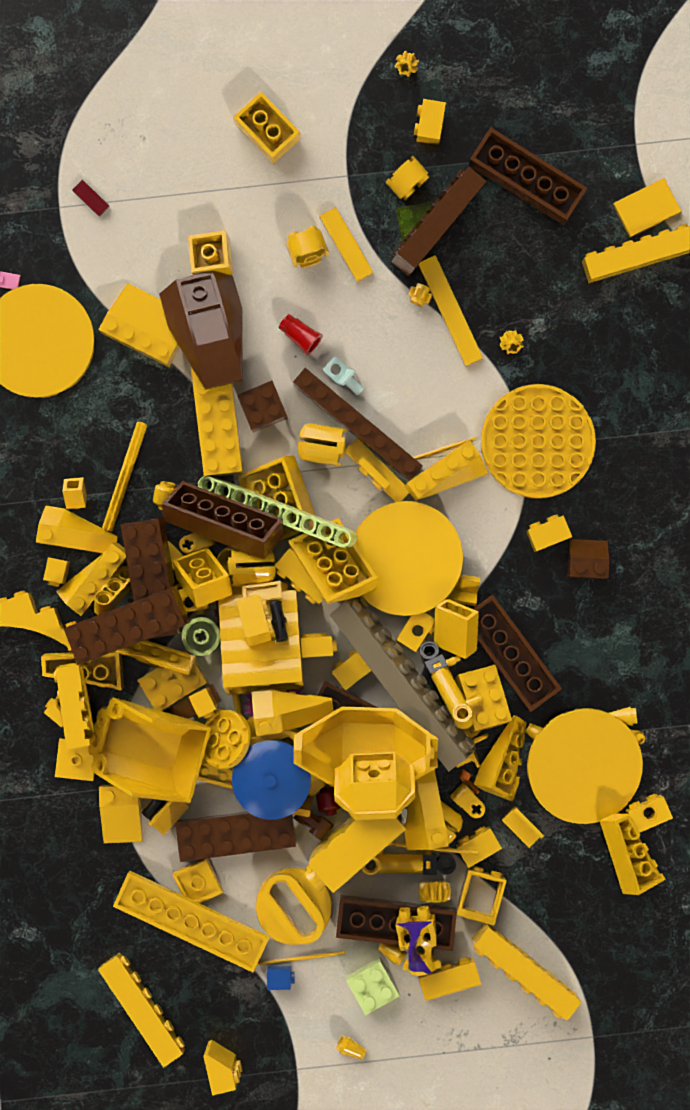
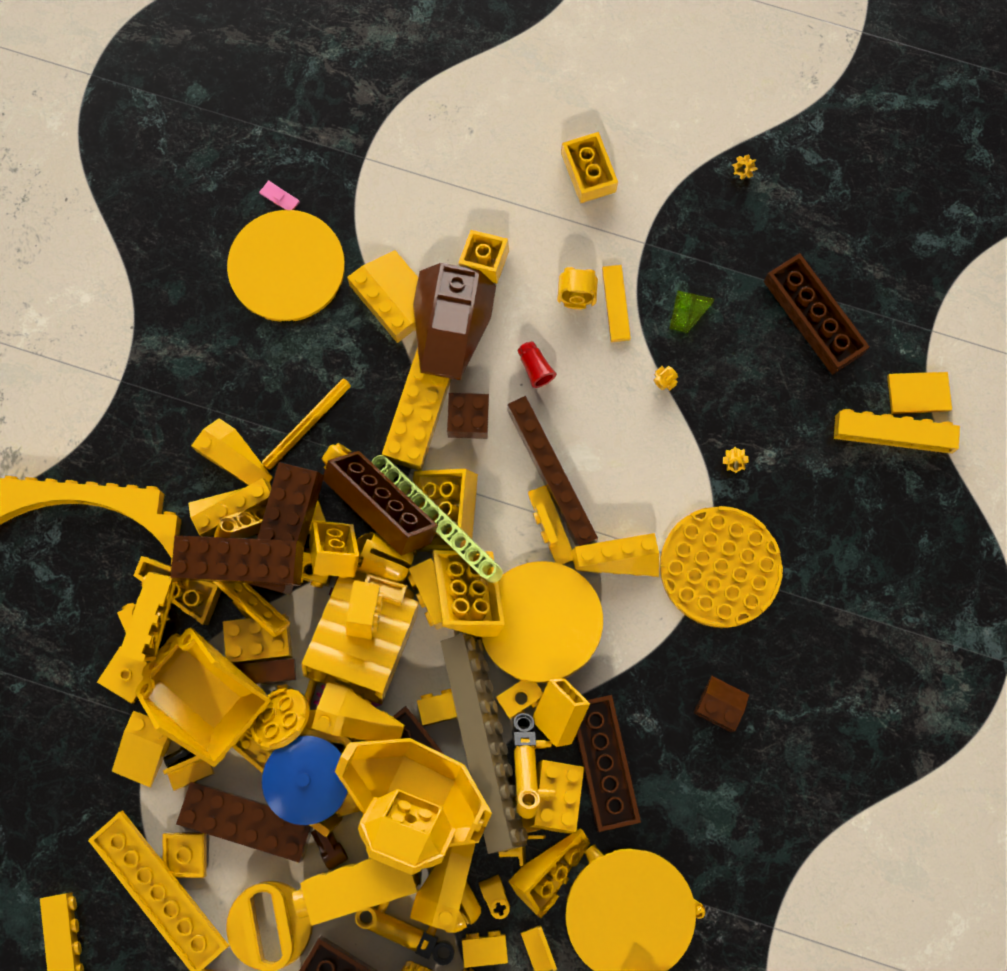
camera: 15 degrees right, 10 degrees down
(56, 571) = (197, 483): yellow brick -> none
(74, 493) = (251, 417): yellow brick -> none
(90, 198) = (397, 161): dark red piece -> none
(191, 640) = (294, 607): yellowish green brick -> none
(199, 542) = (347, 515): yellow piece -> none
(204, 703) = (276, 673): yellow brick -> none
(278, 621) = (387, 623): black pin -> none
(317, 645) = (415, 667): yellow brick -> none
(323, 435) = (509, 475): yellow cylinder -> none
(326, 801) = (350, 833): dark red head -> none
(344, 377) = (560, 422): light aqua bracket -> none
(407, 177) = (701, 266): yellow brick -> none
(431, 120) = (744, 227): yellow brick -> none
(440, 217) = (712, 316): reddish brown brick -> none
(440, 849) = (445, 934): yellow piece -> none
(441, 449) = (620, 532): yellow piece -> none
(450, 311) = (688, 407): yellow tile -> none
(464, 776) = (503, 870): orange hand -> none
(466, 590) = (587, 679): yellow panel -> none
(548, 533) = (693, 660): yellow brick -> none
(626, 715) = (695, 882): yellow cone -> none

